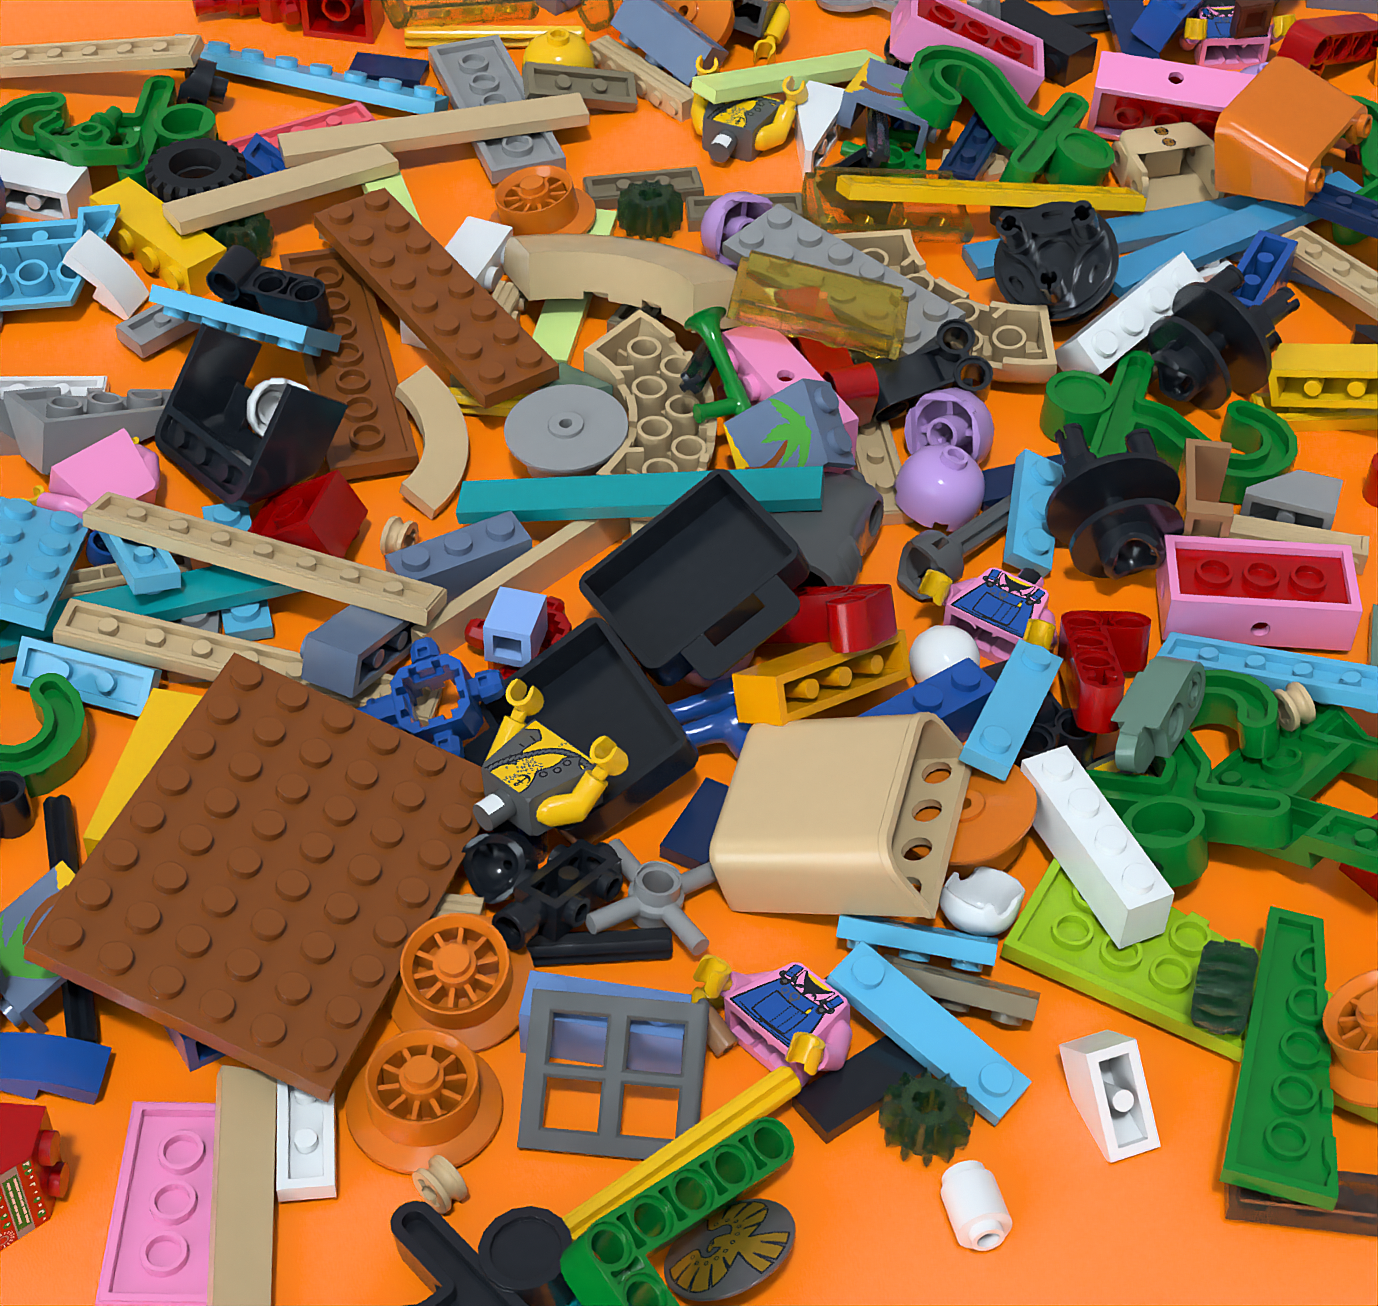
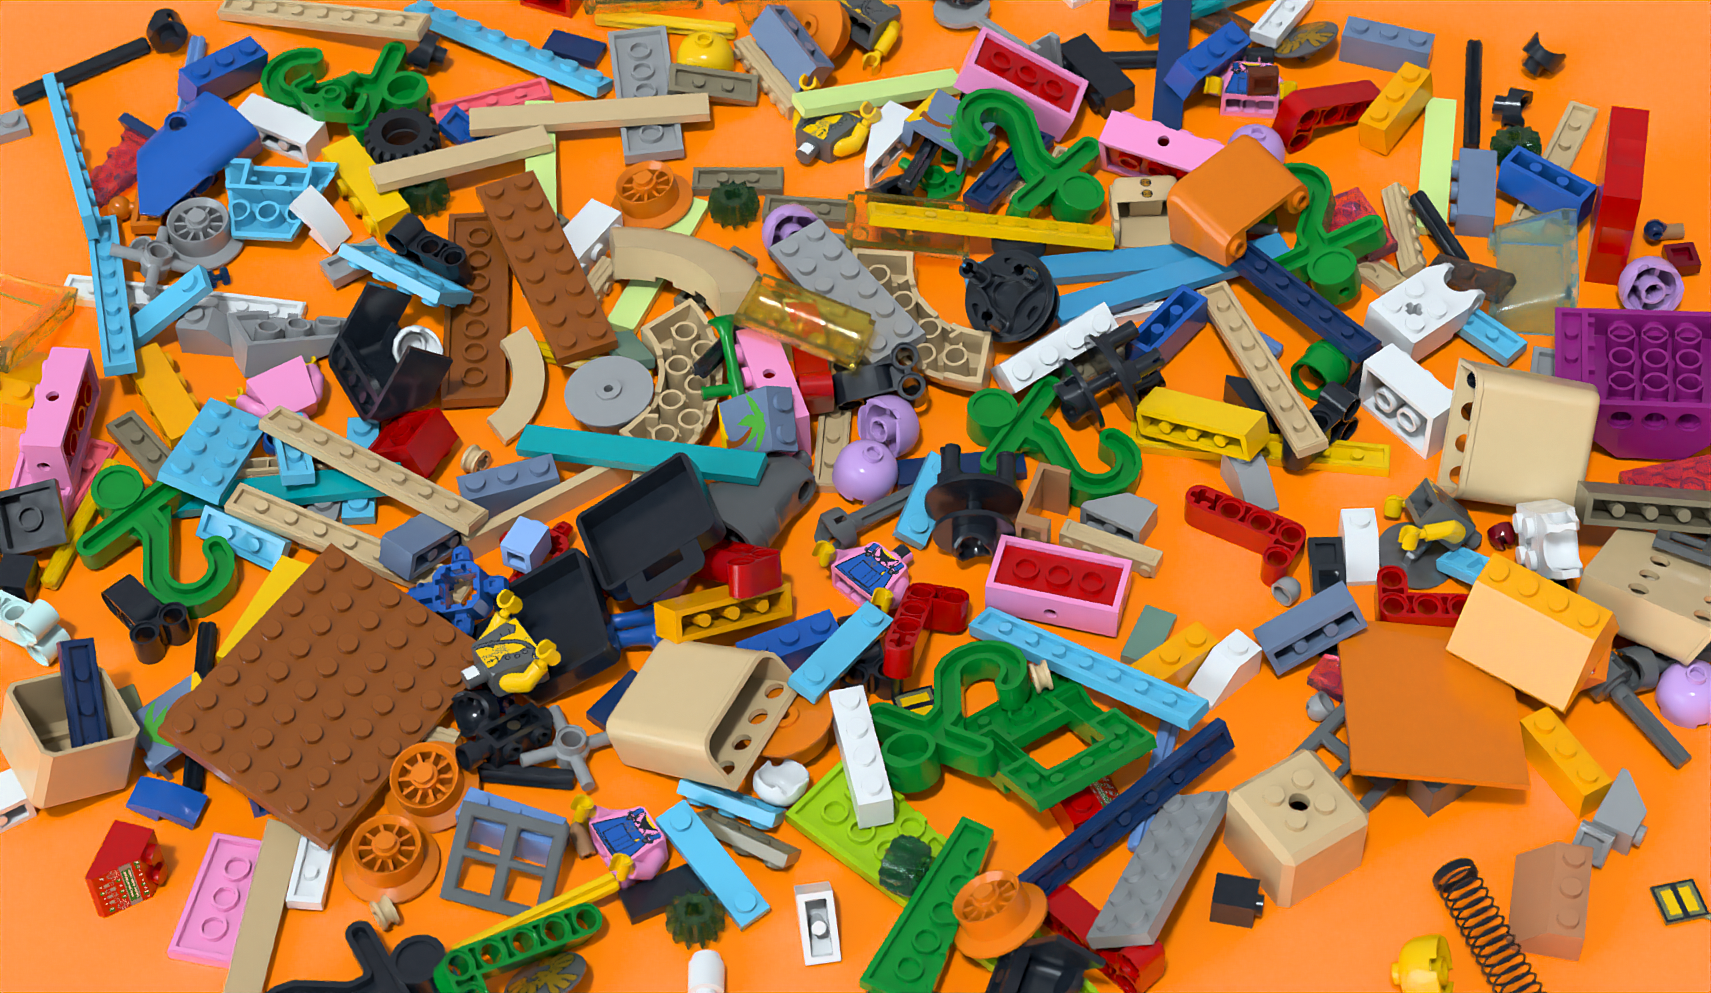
camera: 15 degrees right, 5 degrees up
(940, 649) = (823, 596): white hair -> none
(1157, 711) = (937, 669): sand green piece -> none

